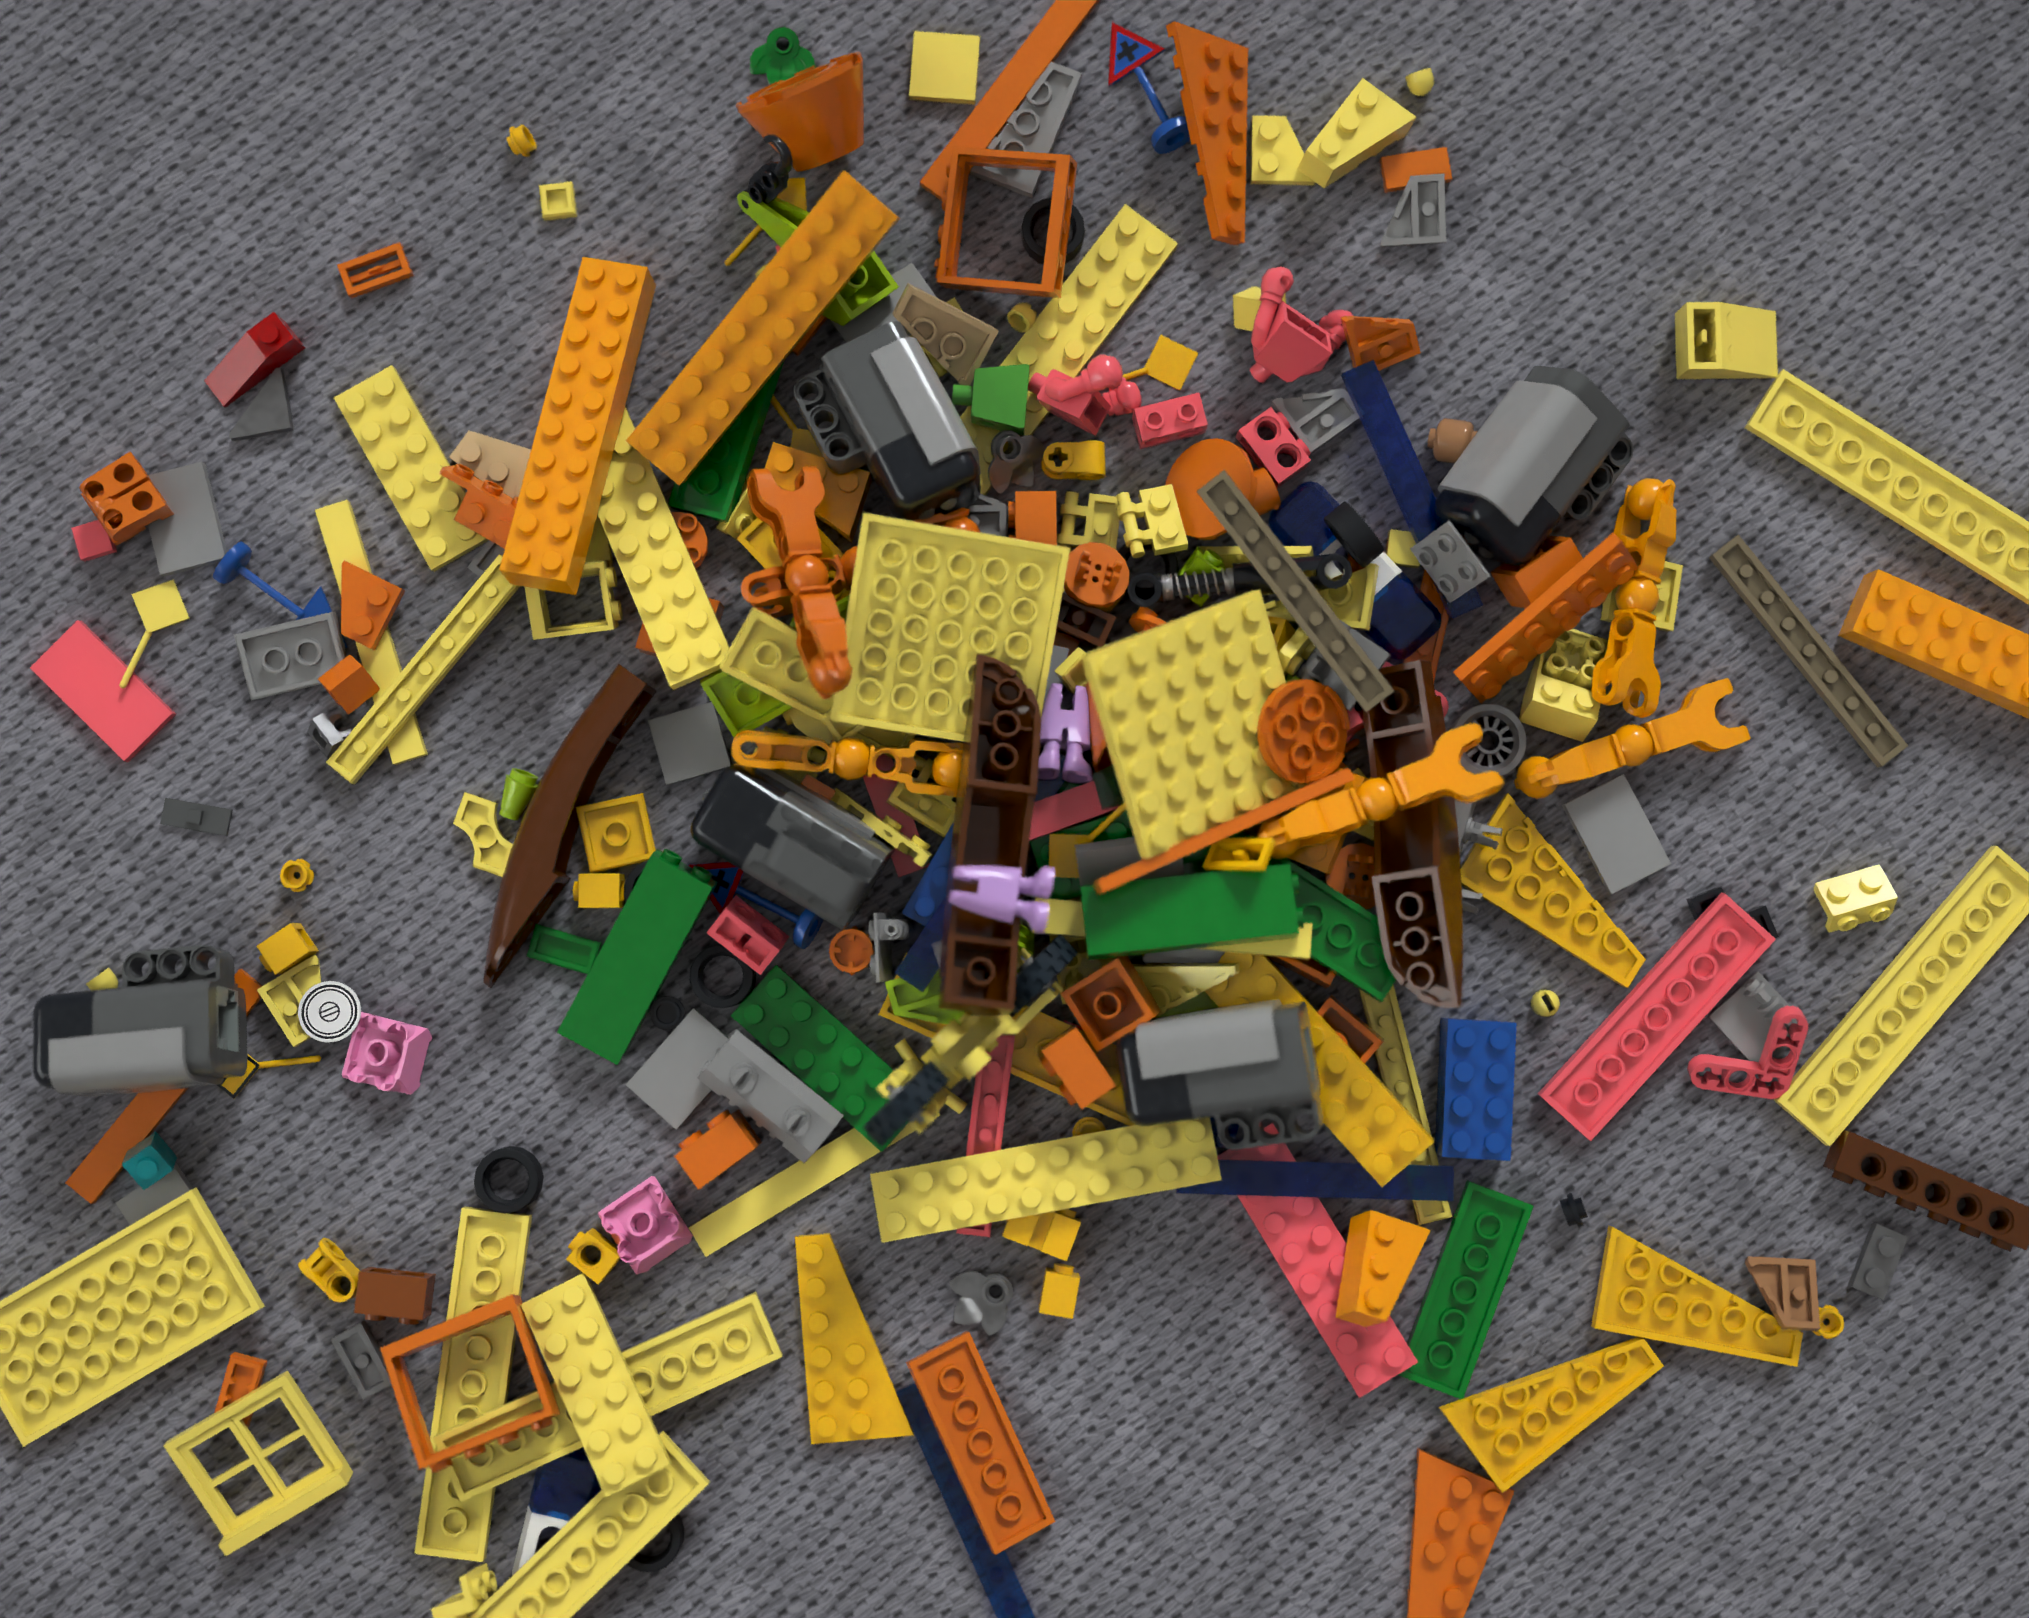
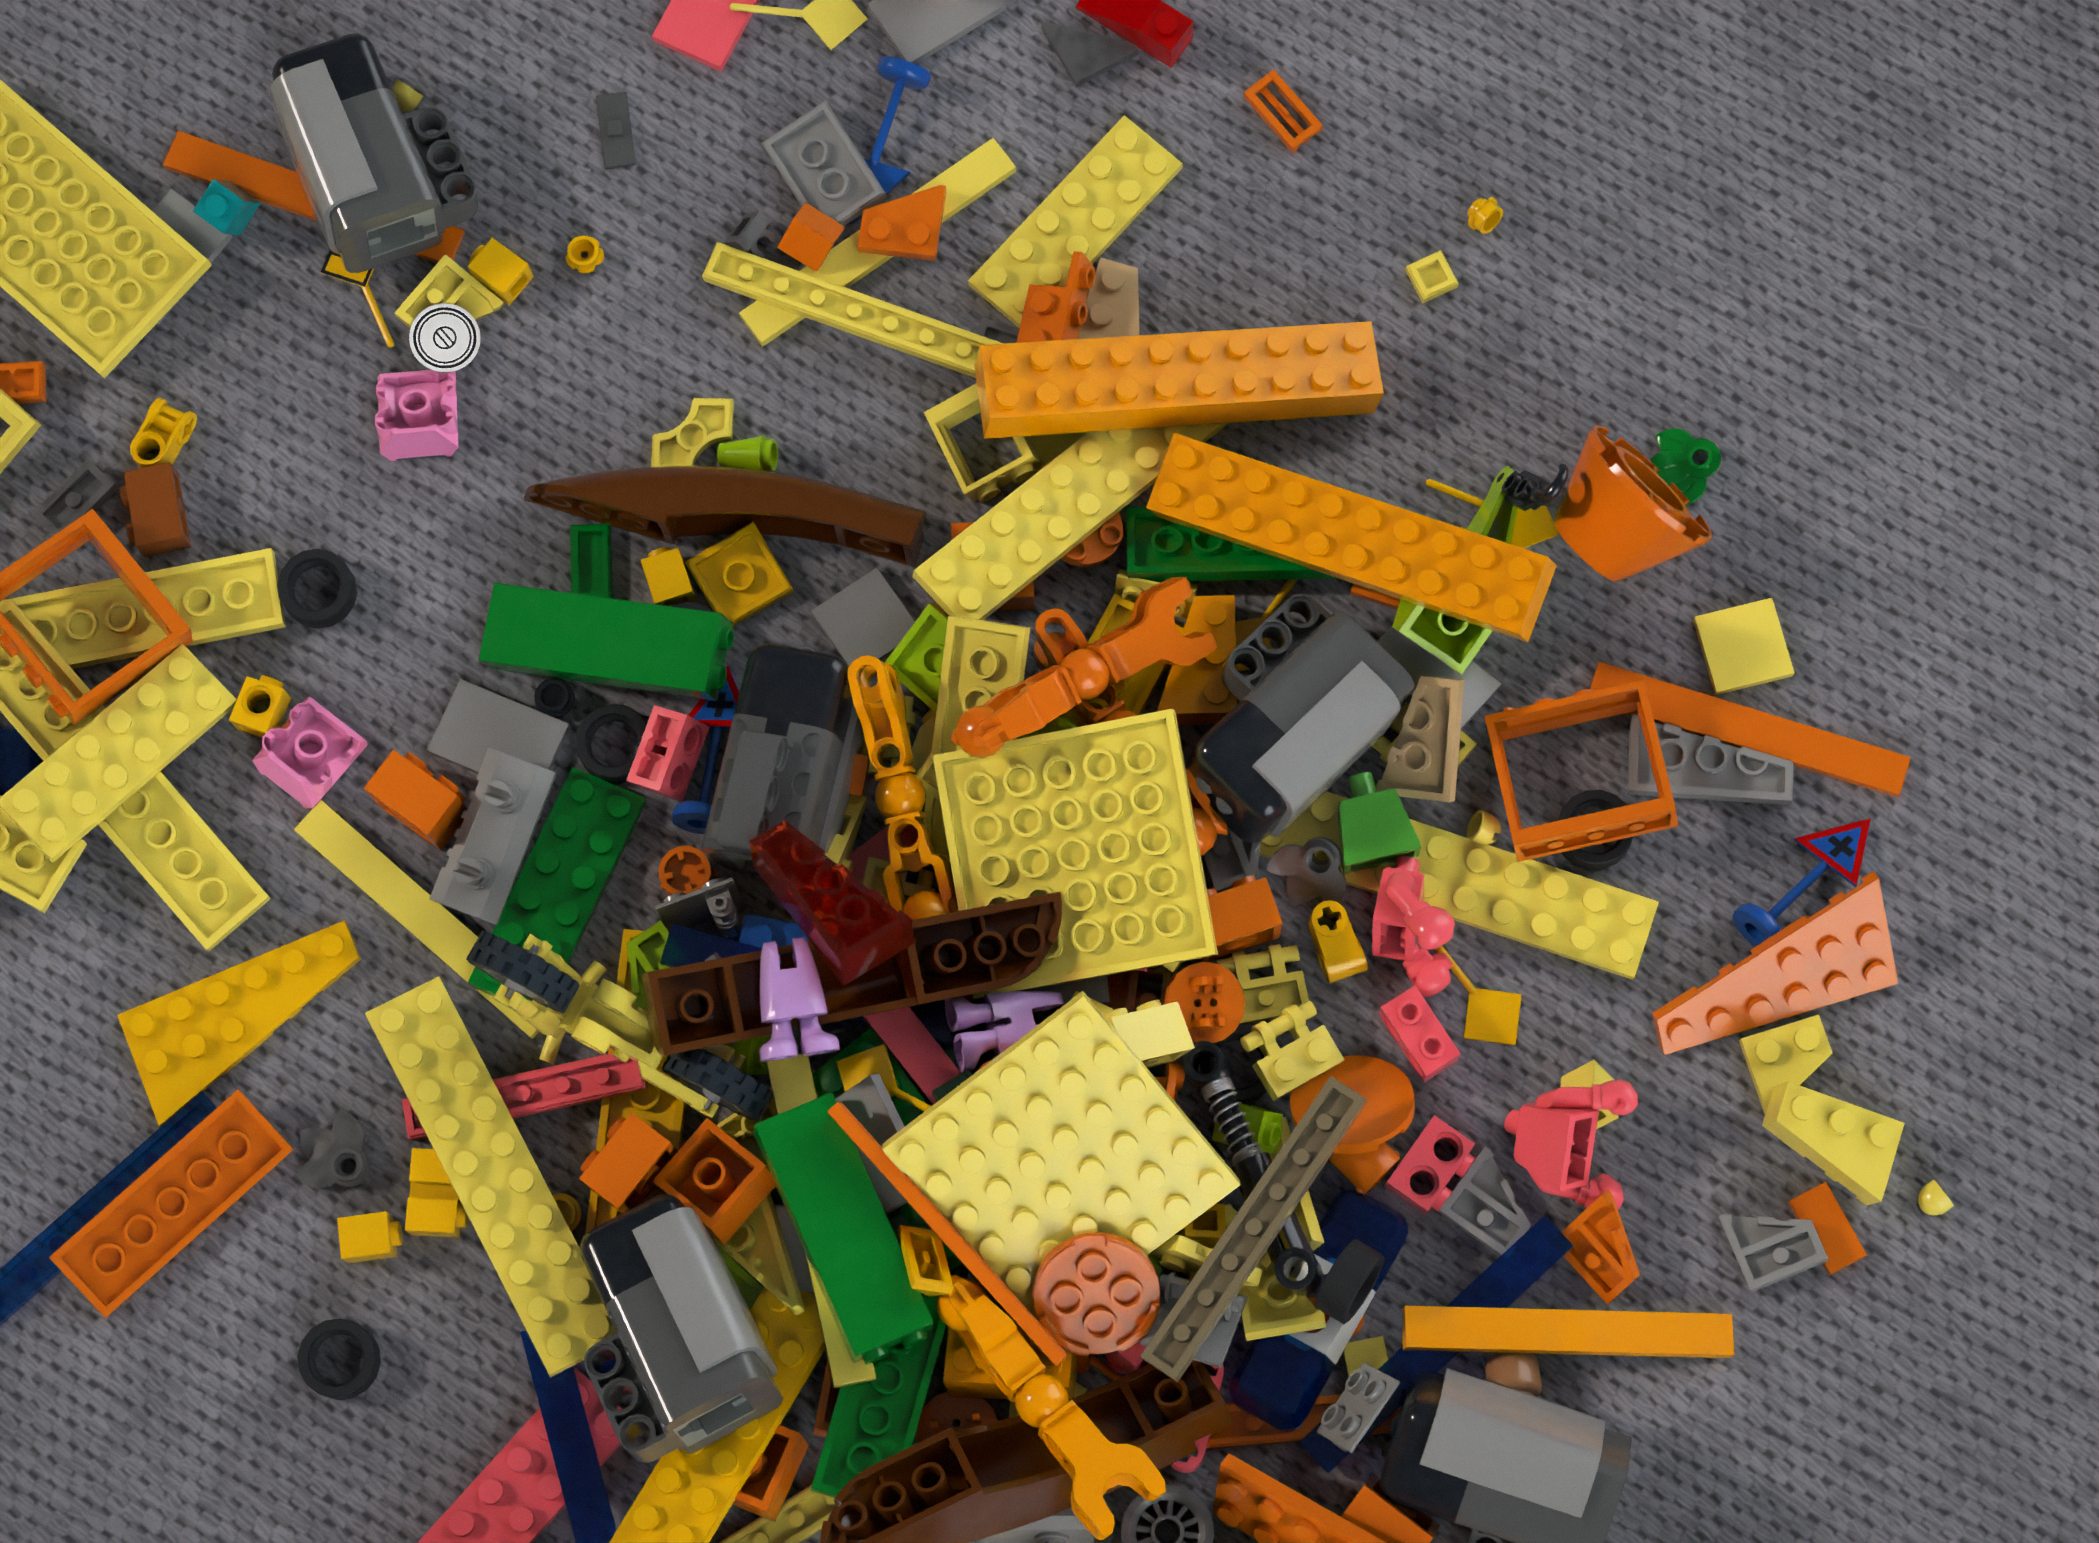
camera: 80 degrees right, 10 degrees down
(946, 833) = (833, 909): none -> clear red wedge
(1111, 618) = (1153, 1031): none -> light yellow brick
(1156, 1368) = (312, 1342): none -> black tyre
(1436, 388) = (1567, 1331): none -> light orange tile

